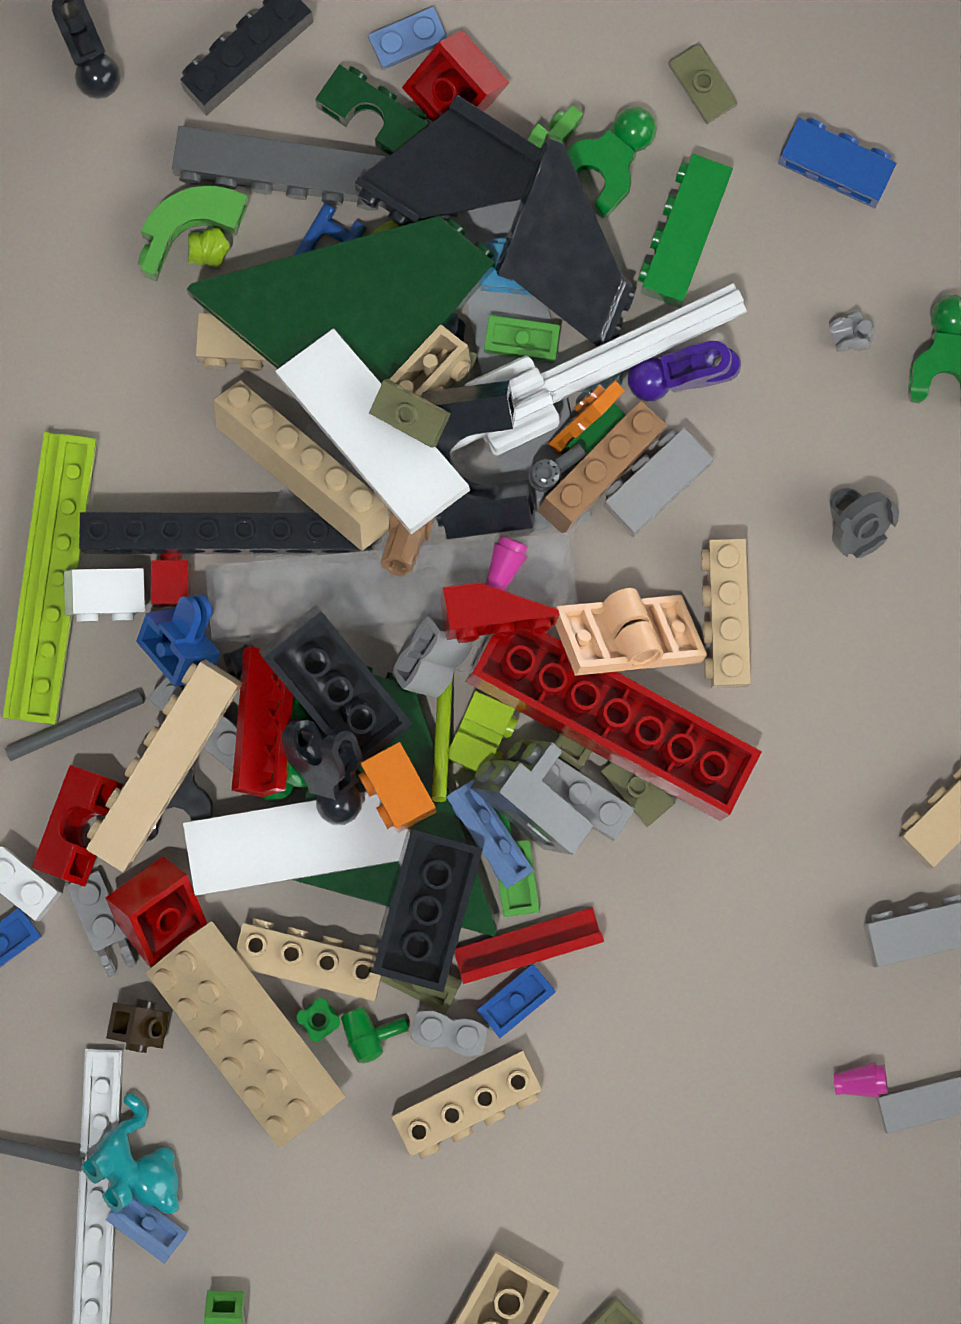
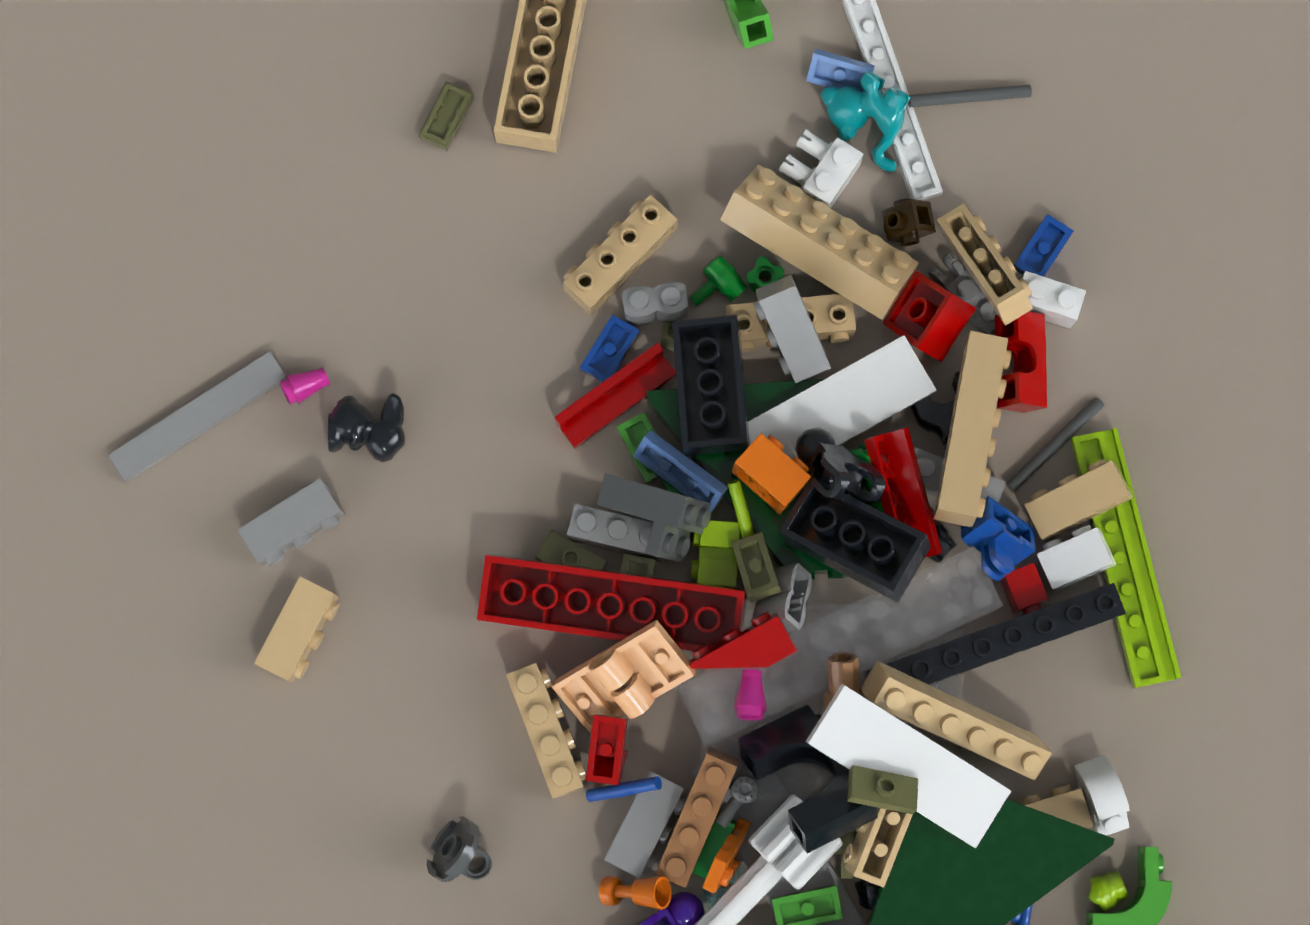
camera: 165 degrees right, 5 degrees down
(77, 653) = (1078, 499): none -> tan brick
(77, 940) = (985, 264): none -> tan brick
(174, 342) = (1103, 795): none -> white brick
(194, 1115) = (834, 170): none -> white brick
(315, 942) = (791, 329): none -> light grey brick
(448, 699) = (756, 567): none -> olive plate
(668, 523) = (624, 789): none -> blue piece
(671, 569) = (607, 749): none -> red slope
(683, 411) = (645, 892): none -> orange piece
(821, 1012) = (354, 426): none -> black animal

